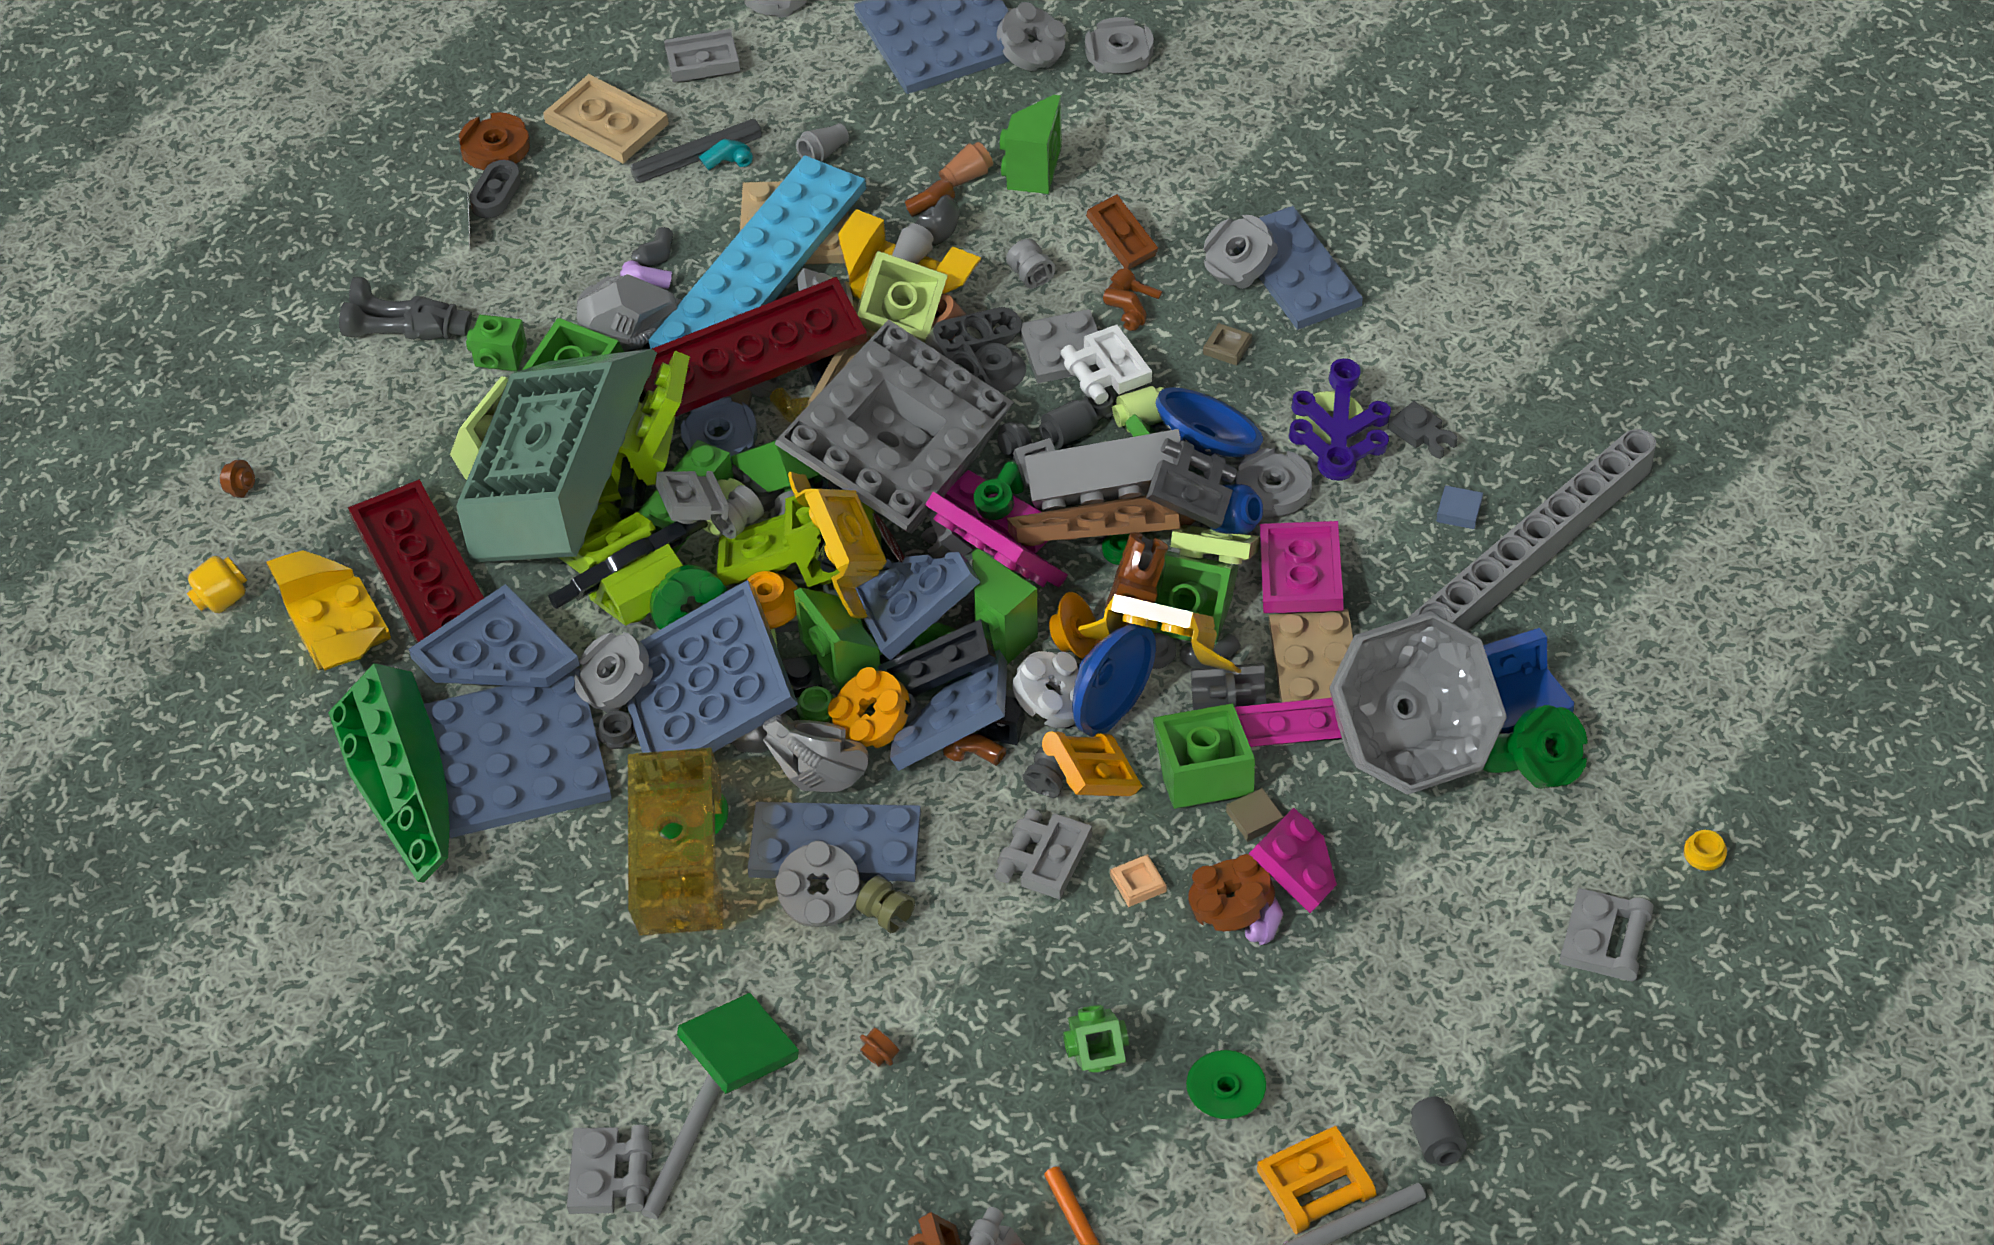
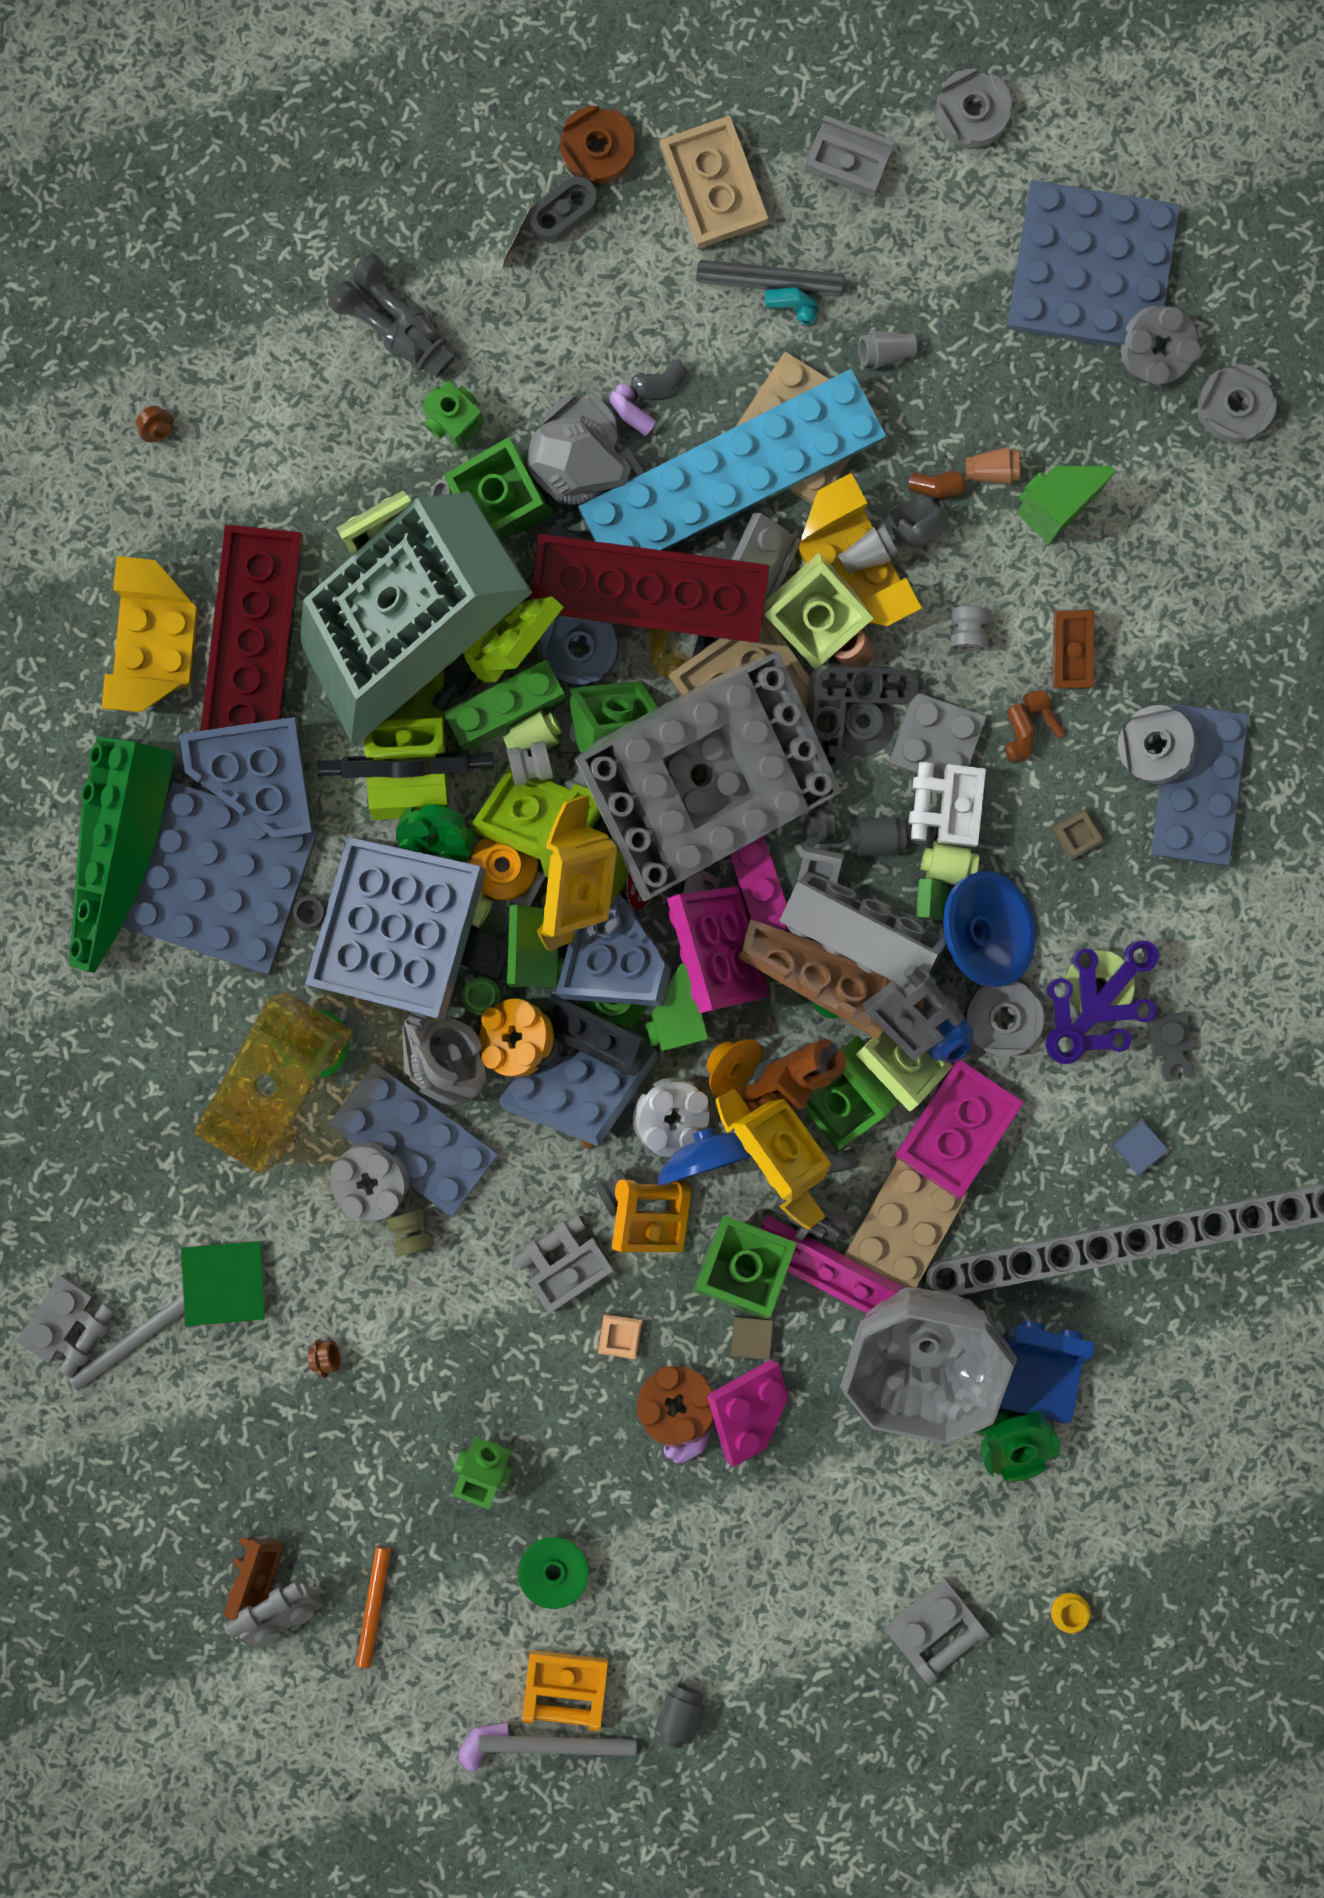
camera: 30 degrees right, 35 degrees up
(216, 584) = (75, 538): yellow head -> none
(631, 671) = (351, 864): light grey plate -> none
(691, 496) = (490, 740): light grey plate -> none
(1007, 482) = (767, 883): green plate -> none

